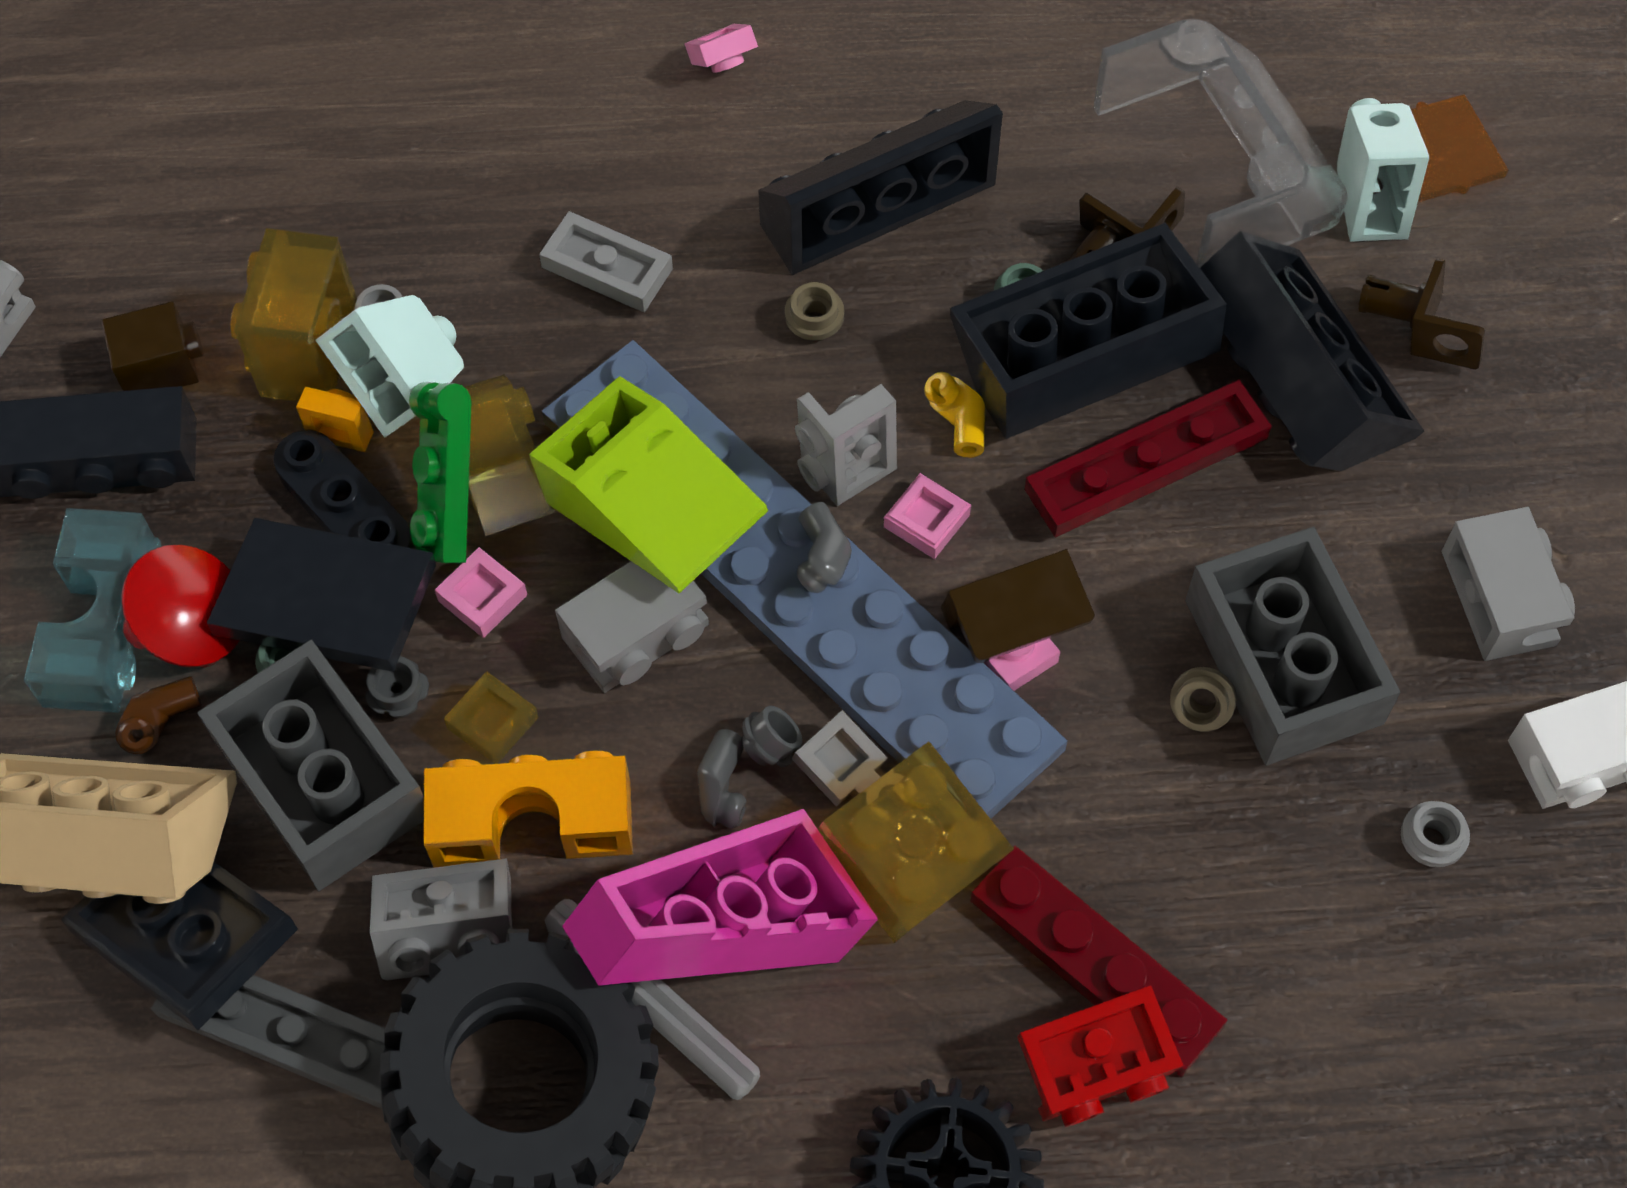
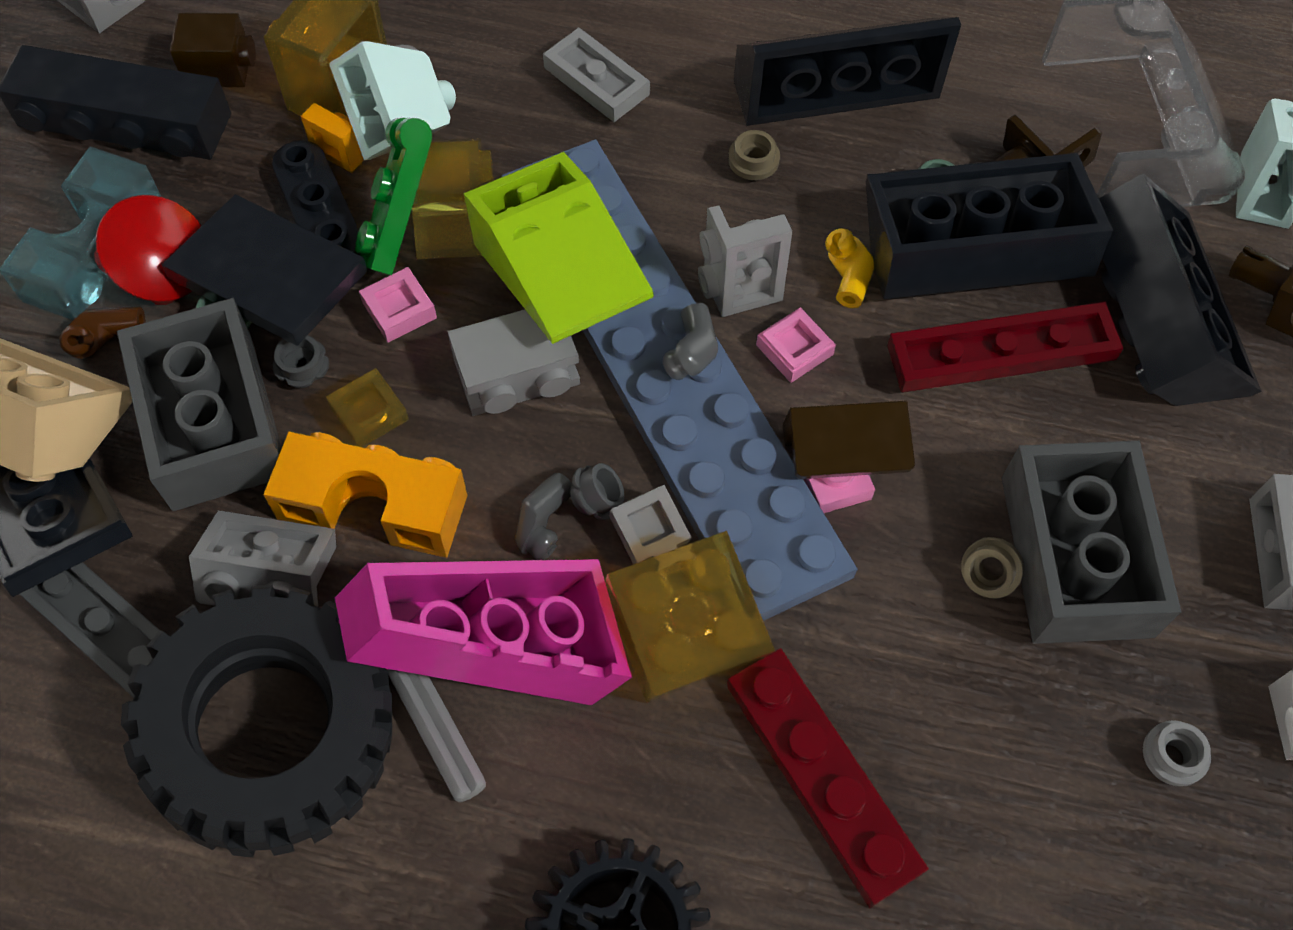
camera: 15 degrees right, 0 degrees up
(1100, 1055) = (797, 865): red bracket -> none

